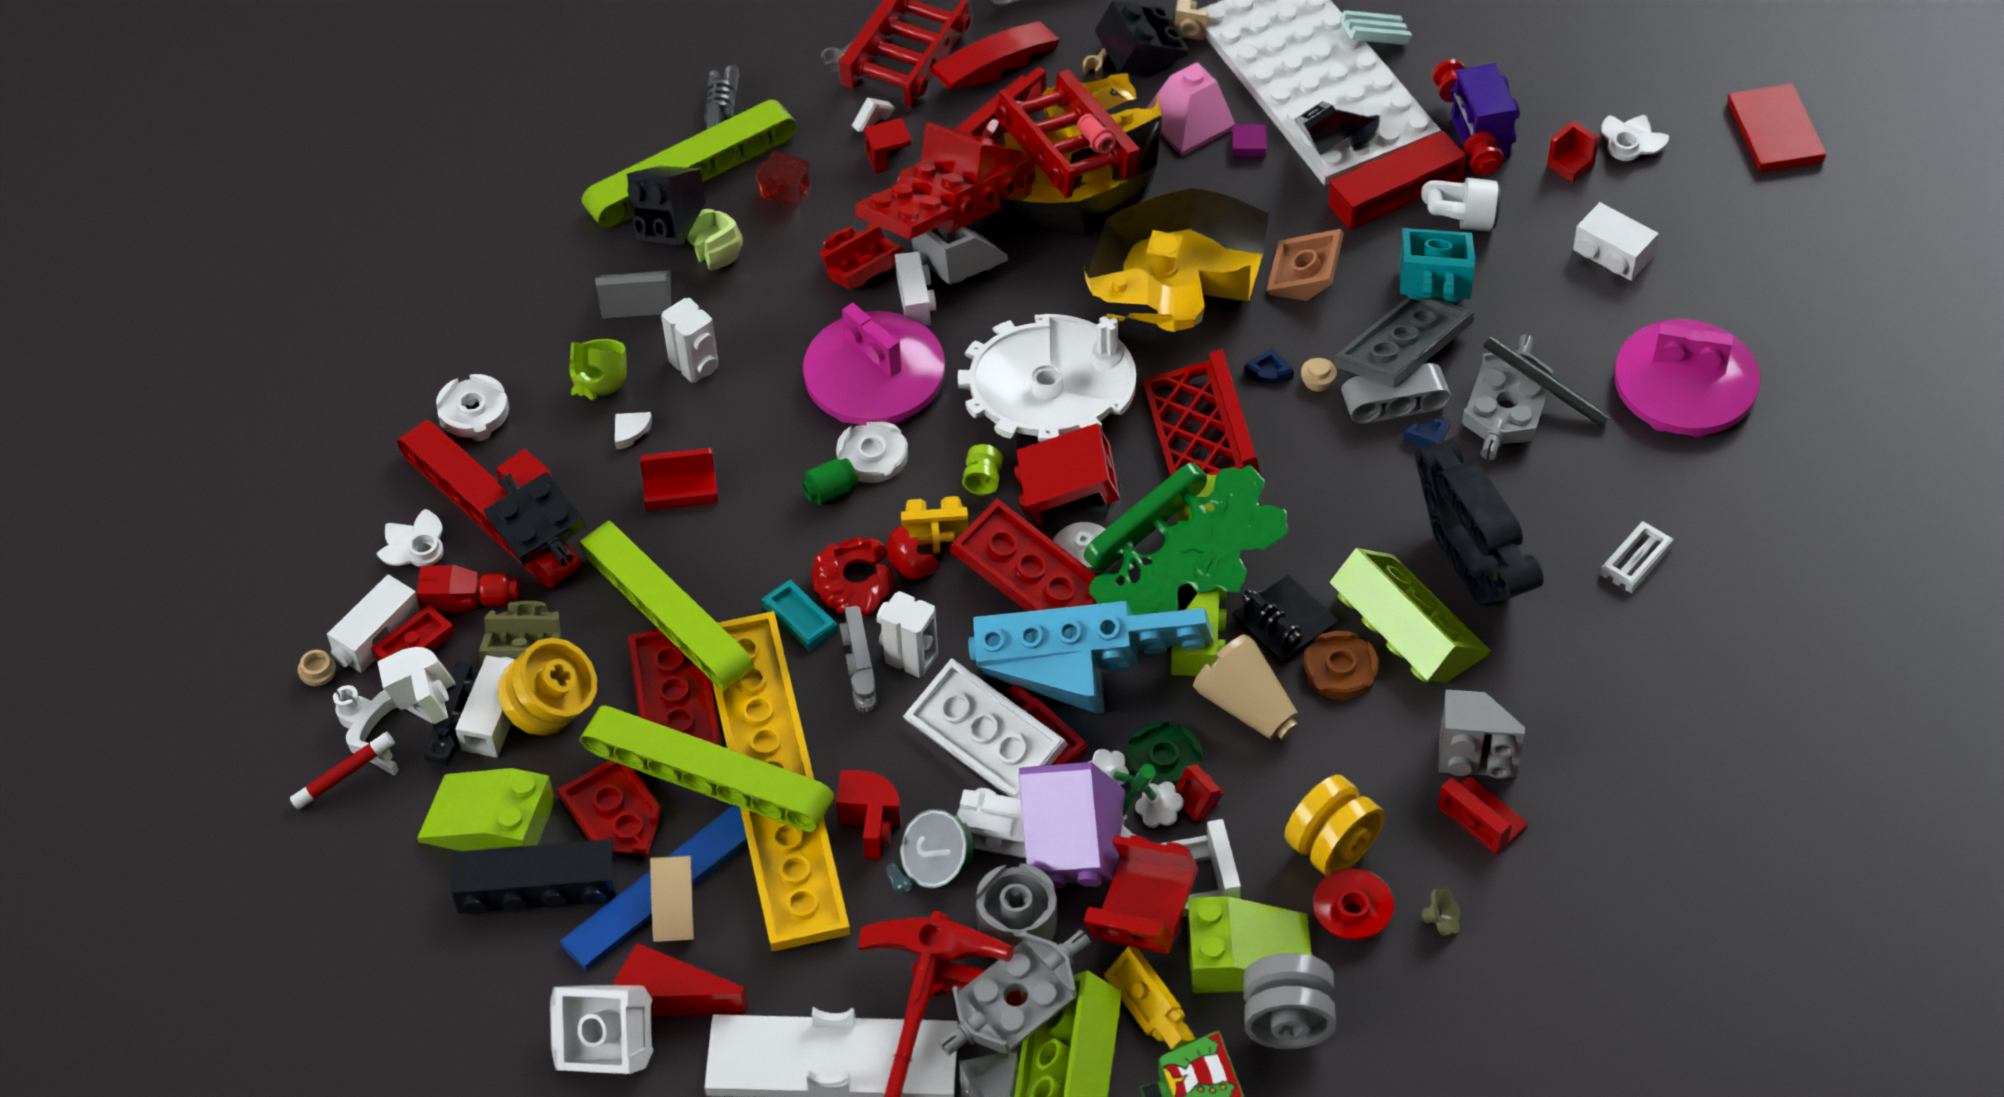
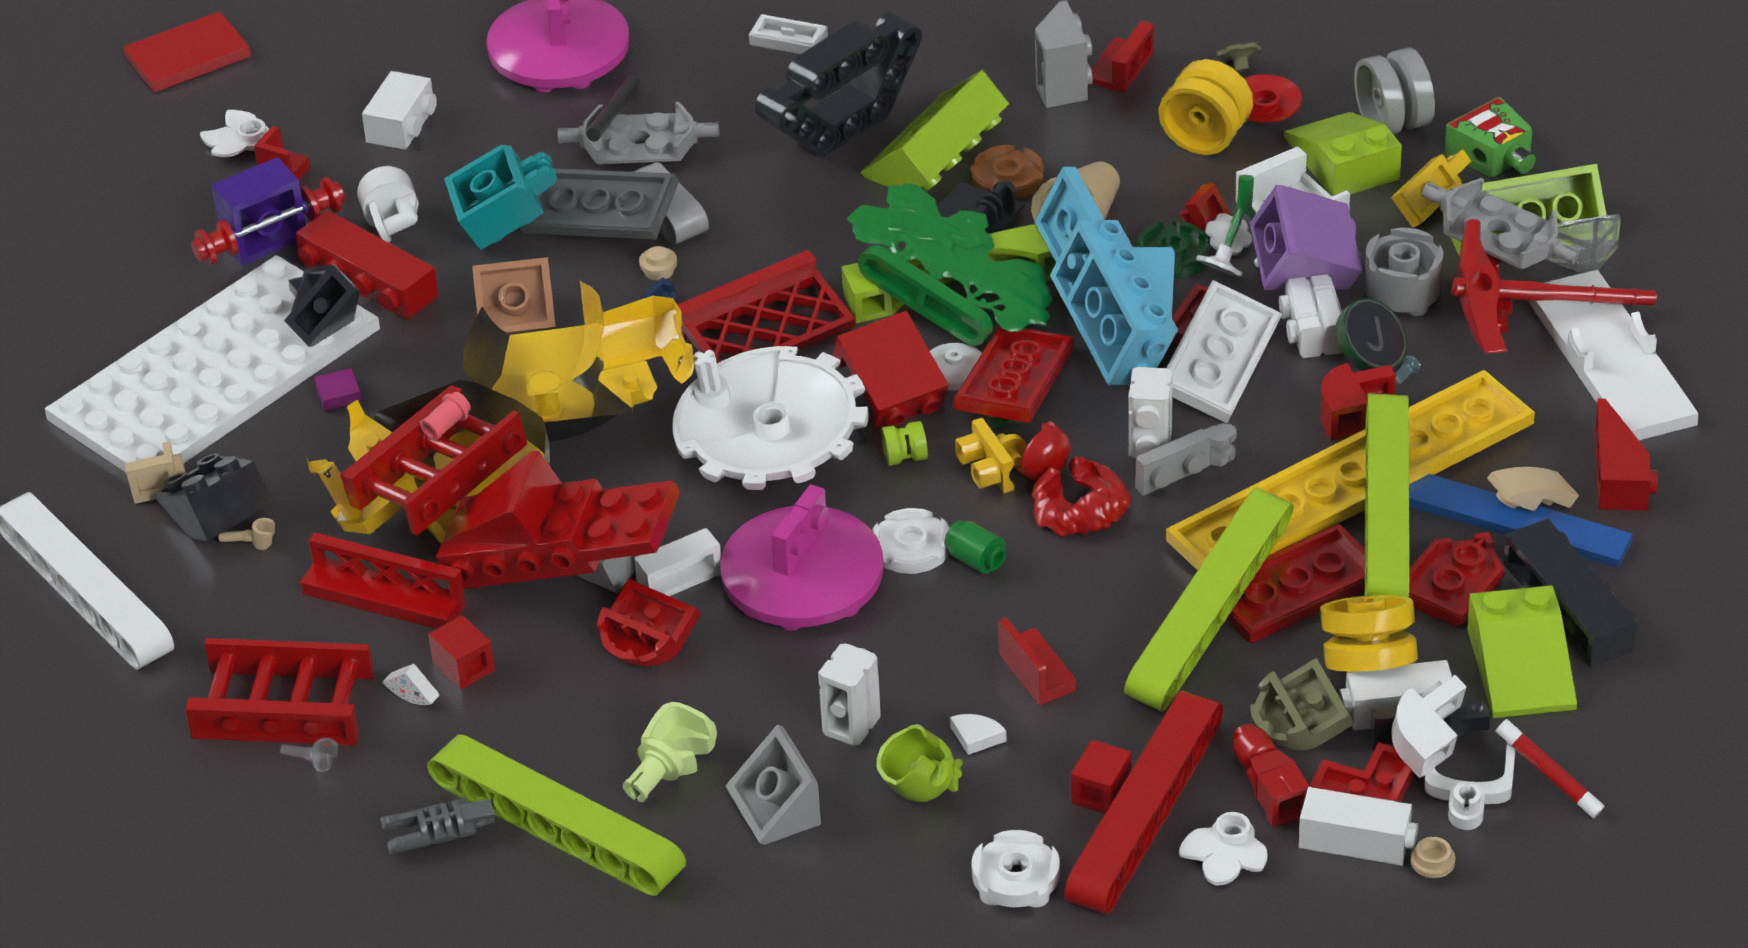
camera: 110 degrees left, 10 degrees down
(535, 519) = (1165, 720): black plate -> none
(601, 1028) = (1699, 478): white slope -> none
(665, 202) = (655, 776): black slope -> none
(784, 178) = (551, 721): clear red brick -> none
(800, 615) = (1147, 526): teal tile -> none
(988, 57) = (283, 607): red slope -> none
(1145, 895) = (1368, 186): red panel -> none
(1192, 110) = (301, 431): bright pink slope -> none
(1375, 27) = (140, 323): light aqua tile -> none
(1427, 432) = (700, 181): dark blue tile -> none

